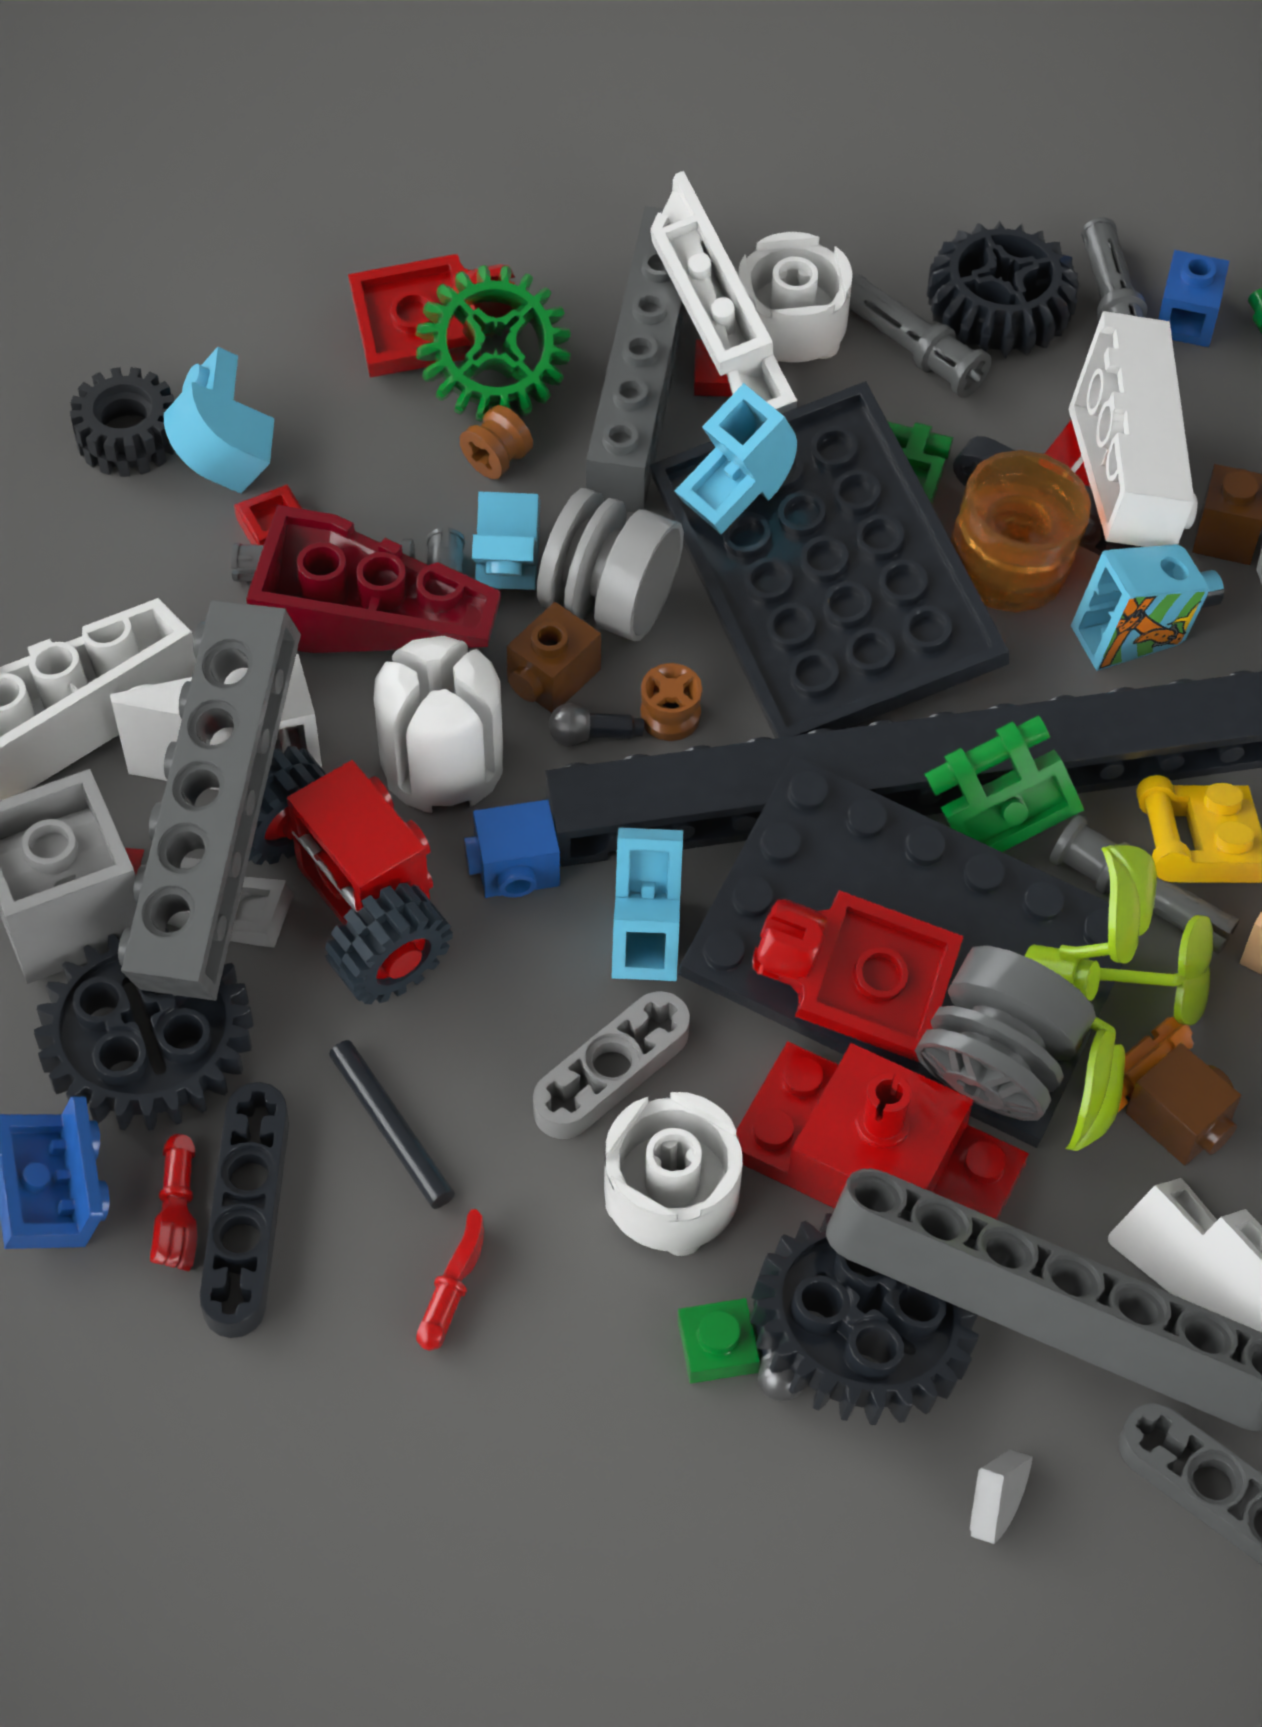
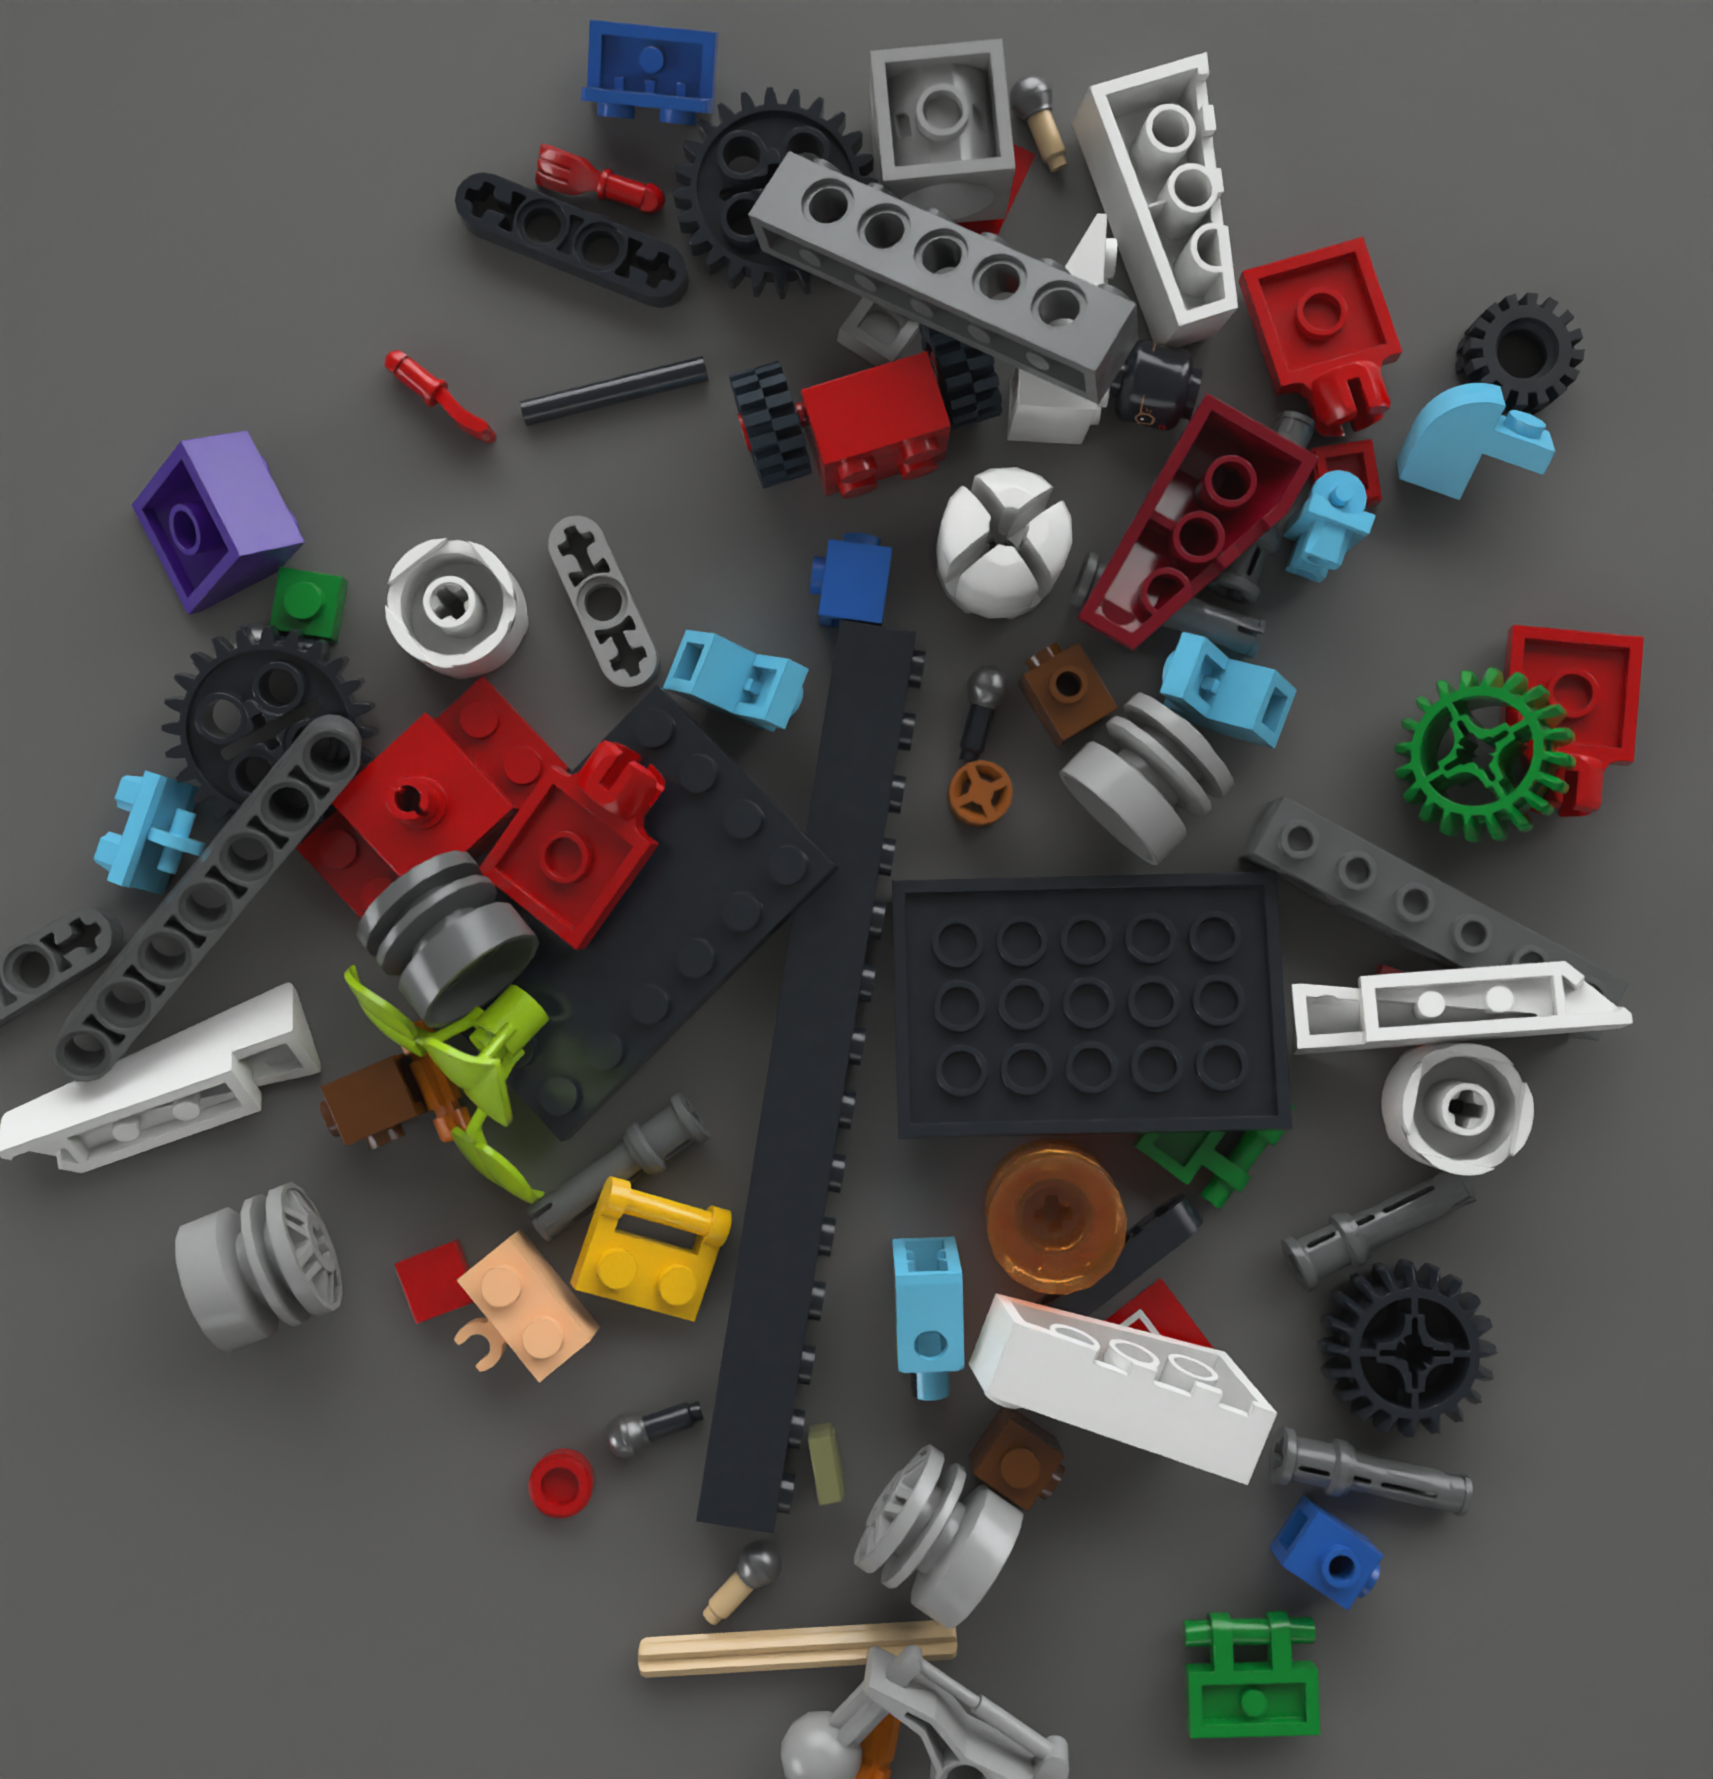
camera: 105 degrees right, 30 degrees up
(150, 551) = (1325, 332): none -> red plate
(341, 490) = (1327, 525): none -> medium azure hips
(496, 442) = (1364, 727): dark orange wheel -> none
(669, 1447) = (216, 519): none -> dark purple slope
(749, 459) = (1216, 946): medium azure brick -> none
(999, 1494) = (86, 786): light grey tile -> none
(1015, 804) = (742, 1065): green plate -> none
(1053, 1407) = (153, 834): none -> medium azure hips

